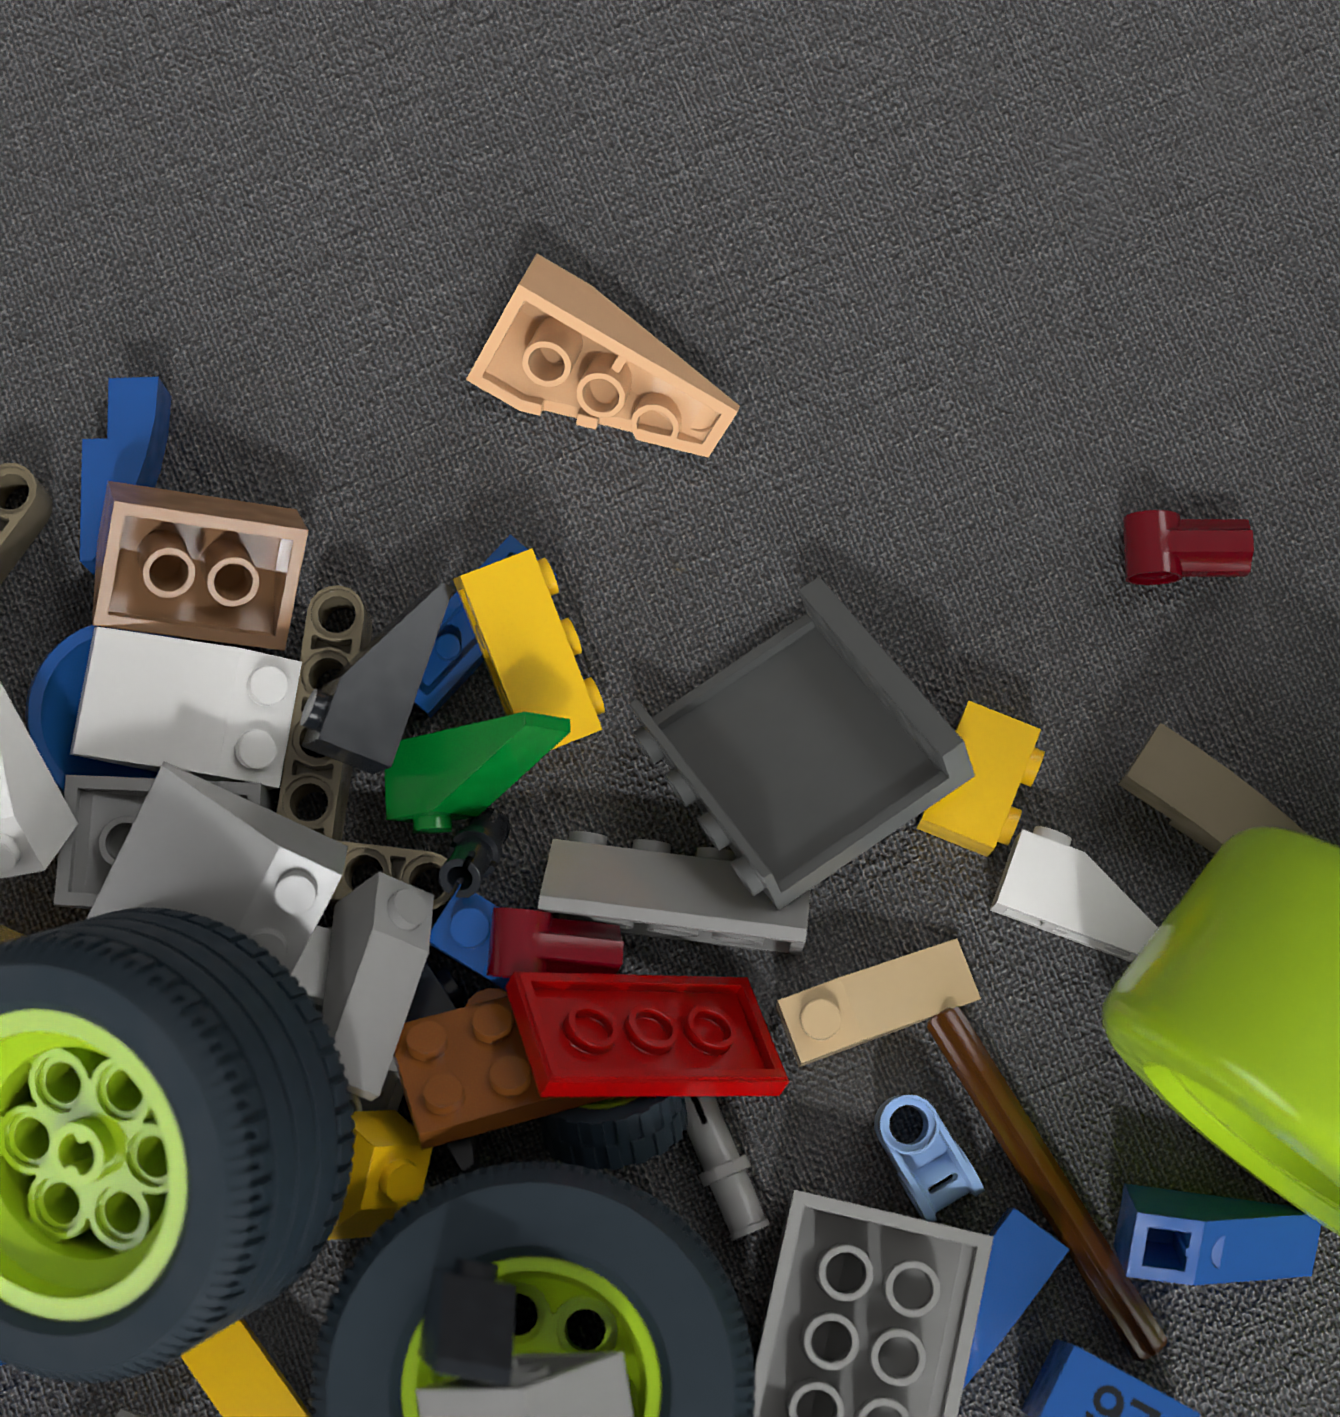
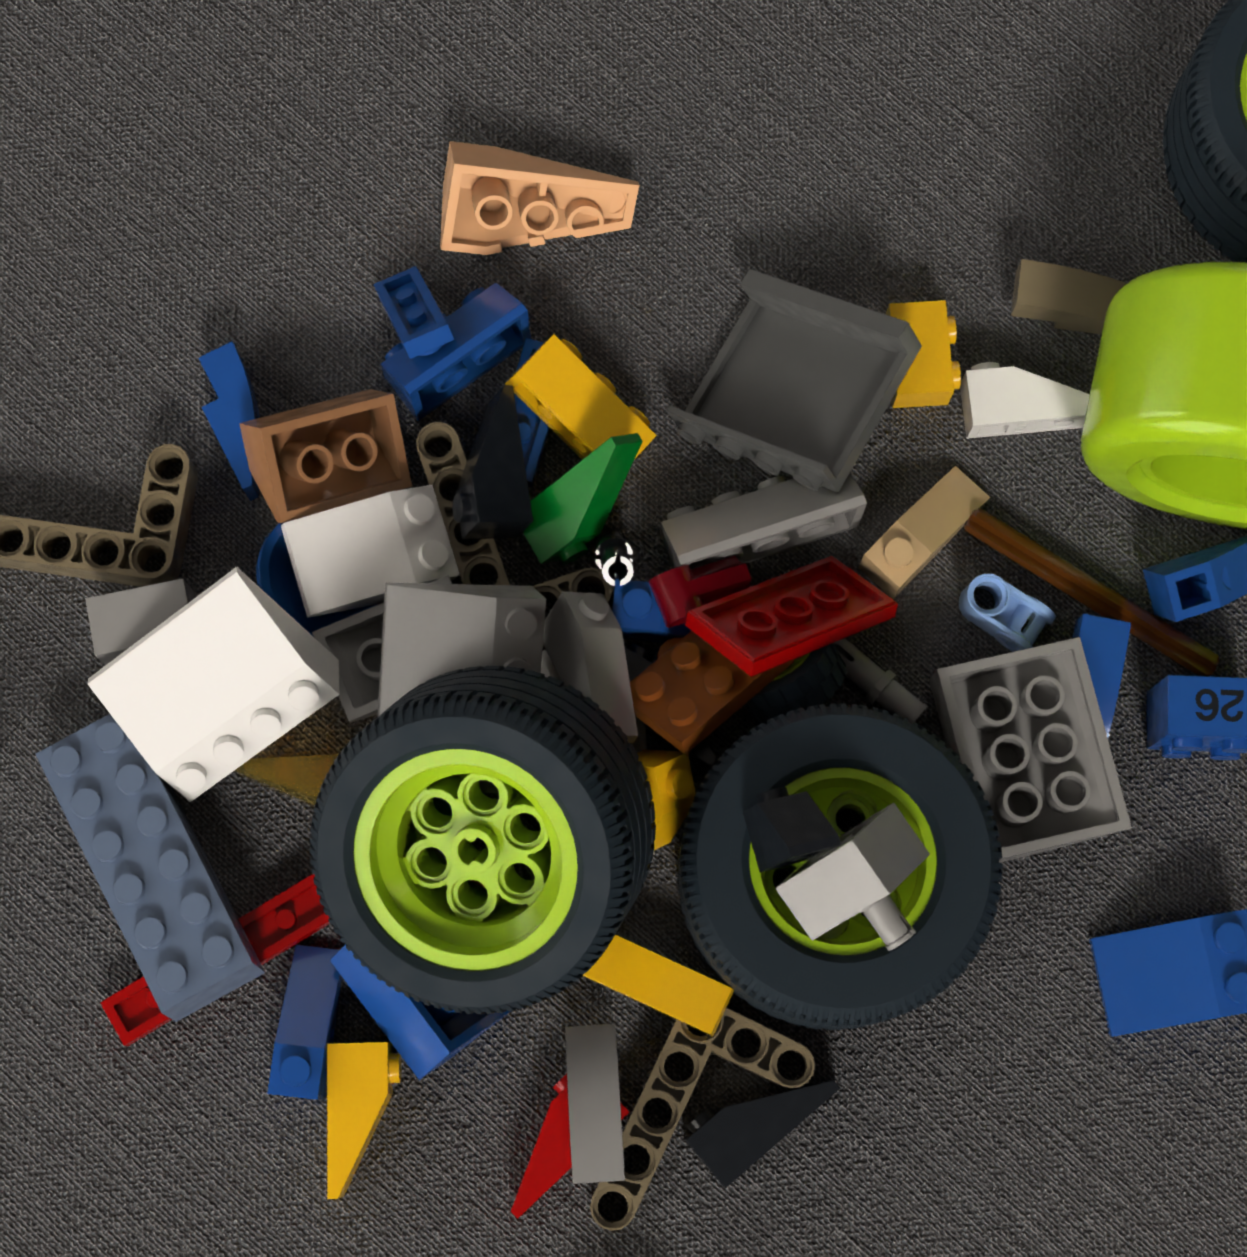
camera: 30 degrees left, 0 degrees up
(384, 443) = (413, 313): none -> blue plate
(416, 510) = (484, 333): none -> blue slope
(1166, 548) = (967, 146): dark red piece -> none

